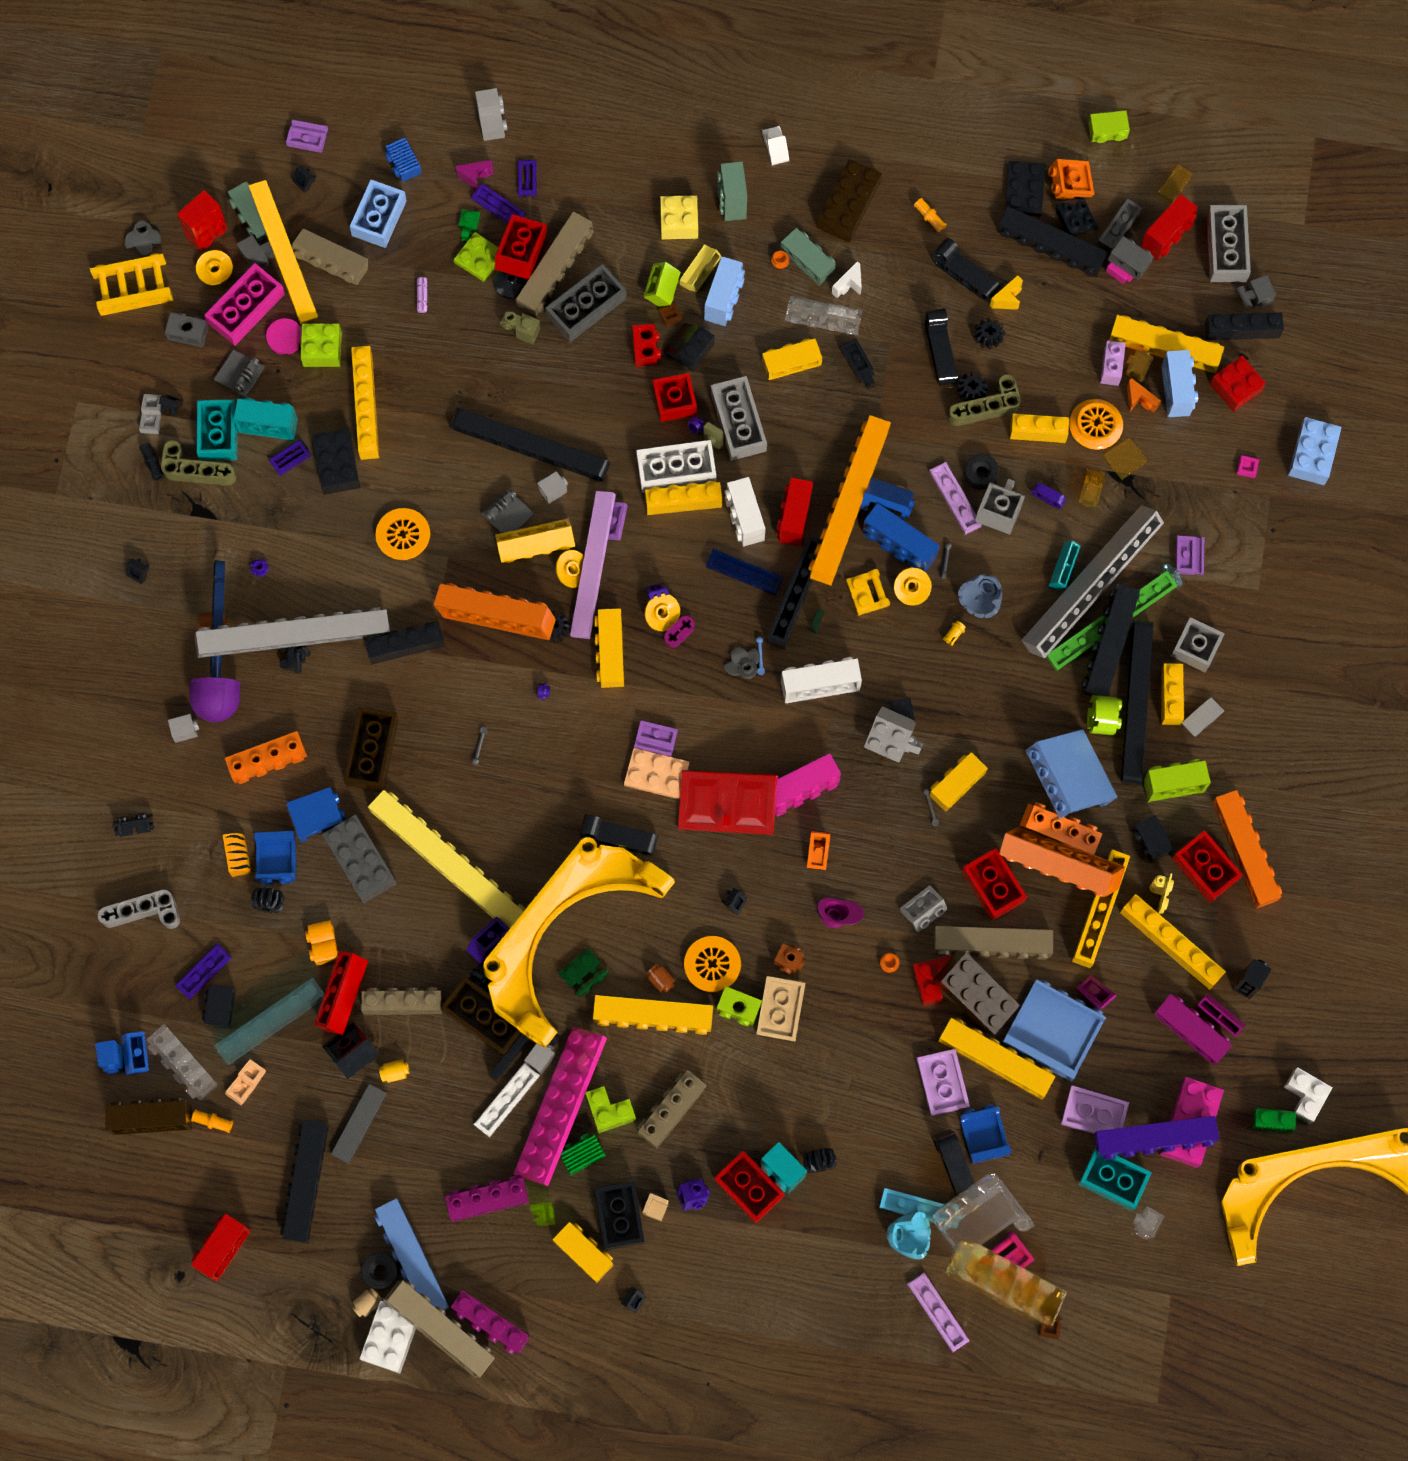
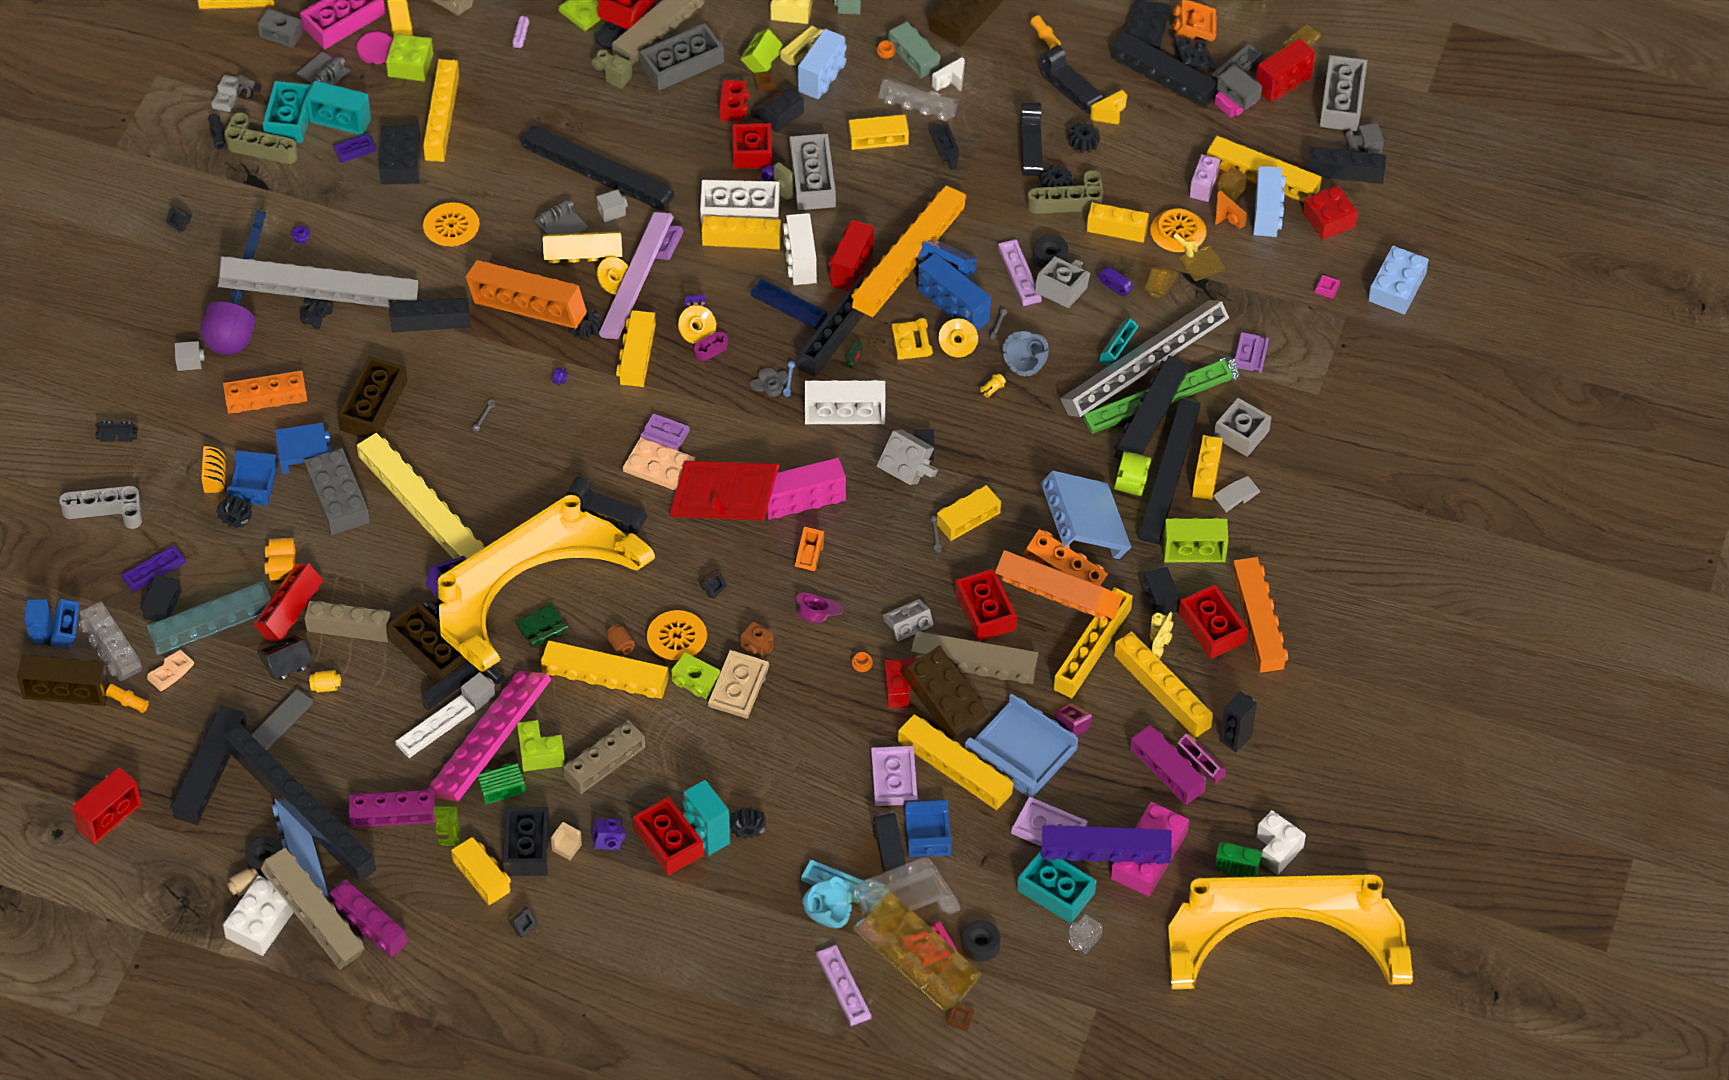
camera: 10 degrees right, 20 degrees down
(402, 1219) = (299, 803): none -> black brick
(1062, 1237) = (981, 952): none -> black tyre
(1109, 443) = (1190, 246): none -> light yellow hand

